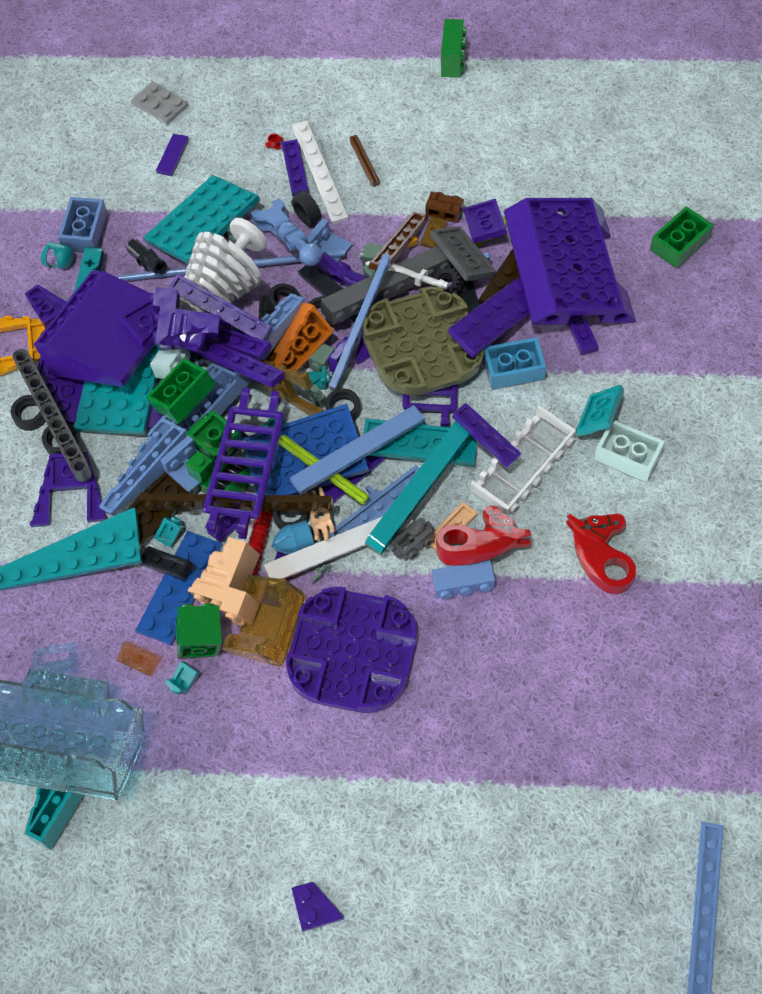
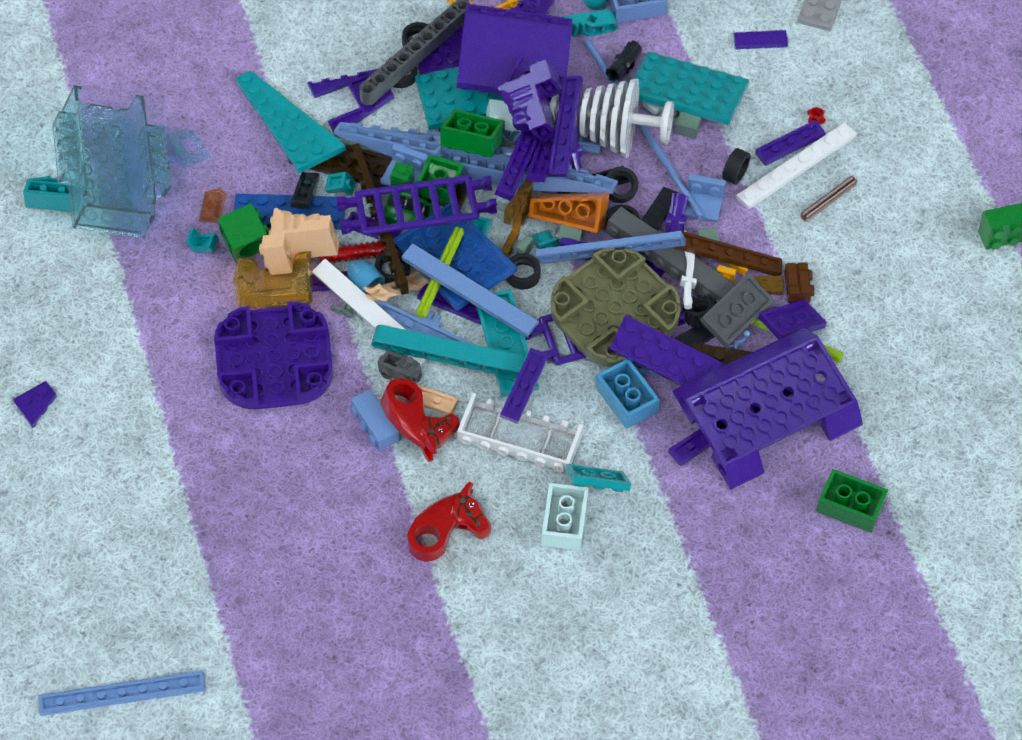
camera: 65 degrees right, 5 degrees down
(280, 225) = (703, 151): medium blue piece -> none
(415, 250) = (727, 272): none -> light orange plate

